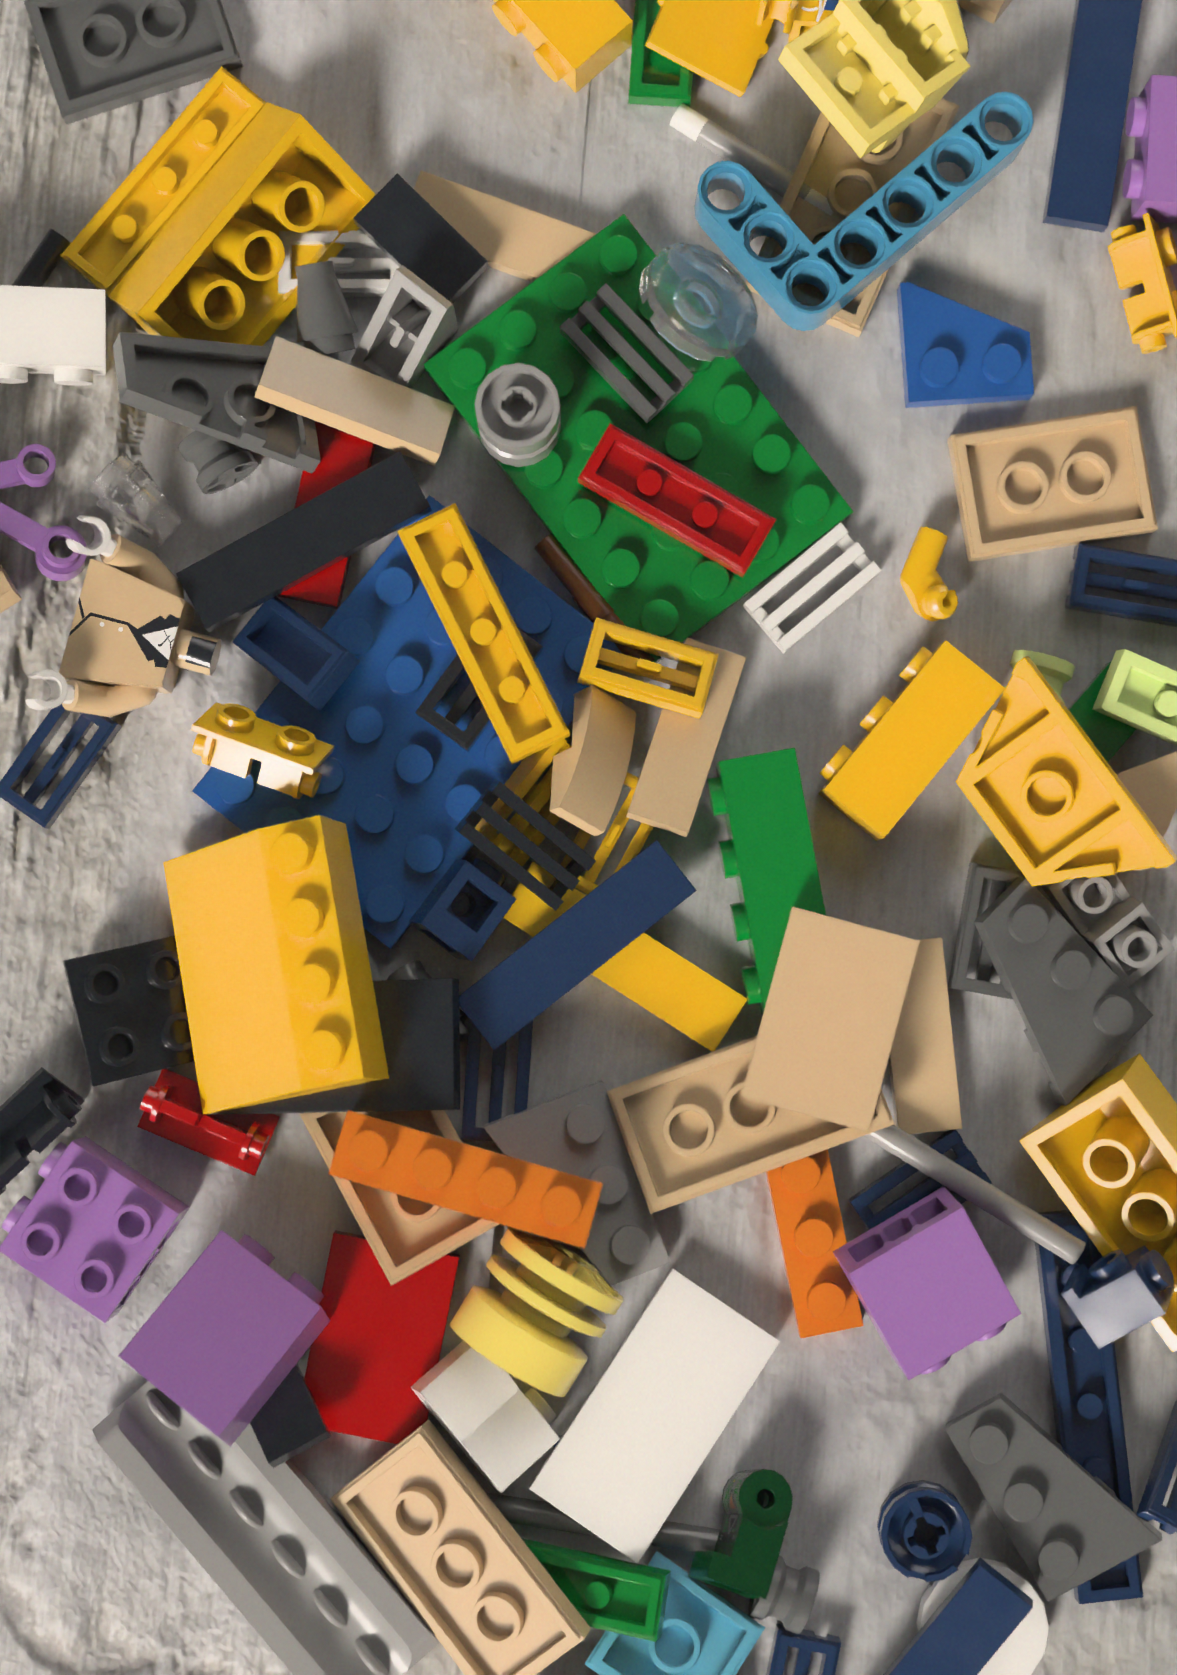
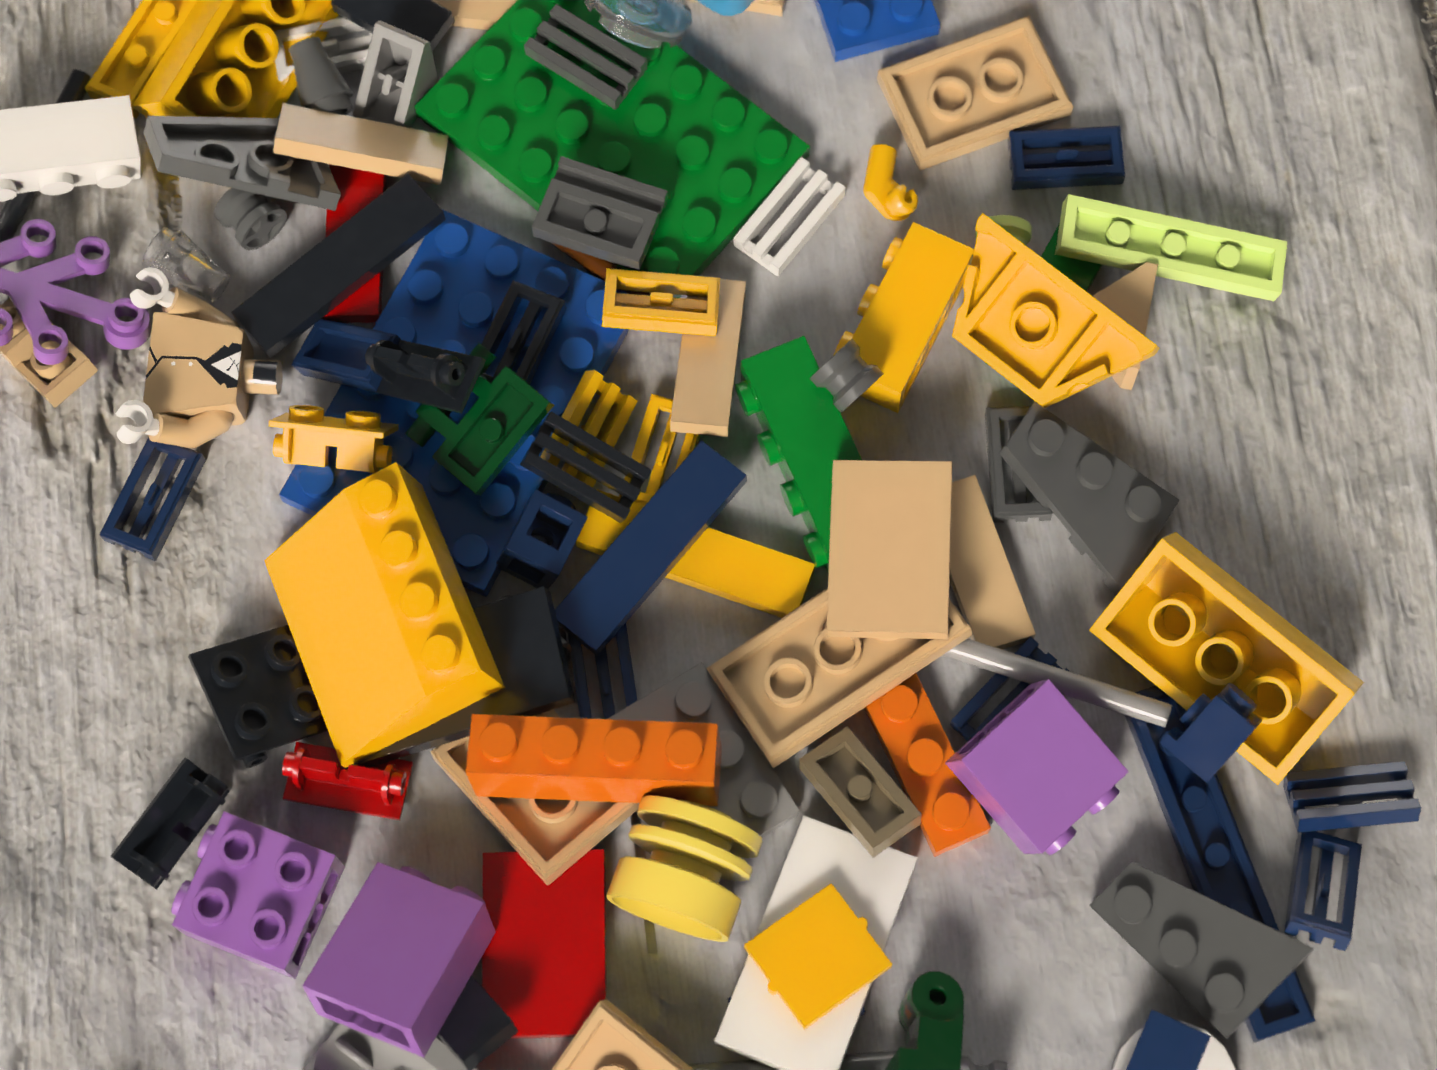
camera: 10 degrees left, 15 degrees down
(372, 712) = (424, 373): none -> black hinge
(434, 782) = (489, 431): none -> dark green plate
(483, 633) = (511, 298): yellow tile -> none
(487, 1414) = (659, 978): white brick -> none
(518, 414) = (503, 116): light grey wheel -> none
(593, 770) = (632, 391): tan slope -> none
(602, 552) = (600, 213): none -> dark grey plate
(653, 1426) = (817, 956): none -> yellow piece
(676, 500) = (681, 167): red tile -> none
(737, 1259) = (860, 791): none -> dark tan plate
(829, 813) = (846, 376): none -> dark grey wheel
(896, 1525) = (1092, 1029): dark blue wheel -> none
(1112, 924) = (1119, 428): light grey slope -> none

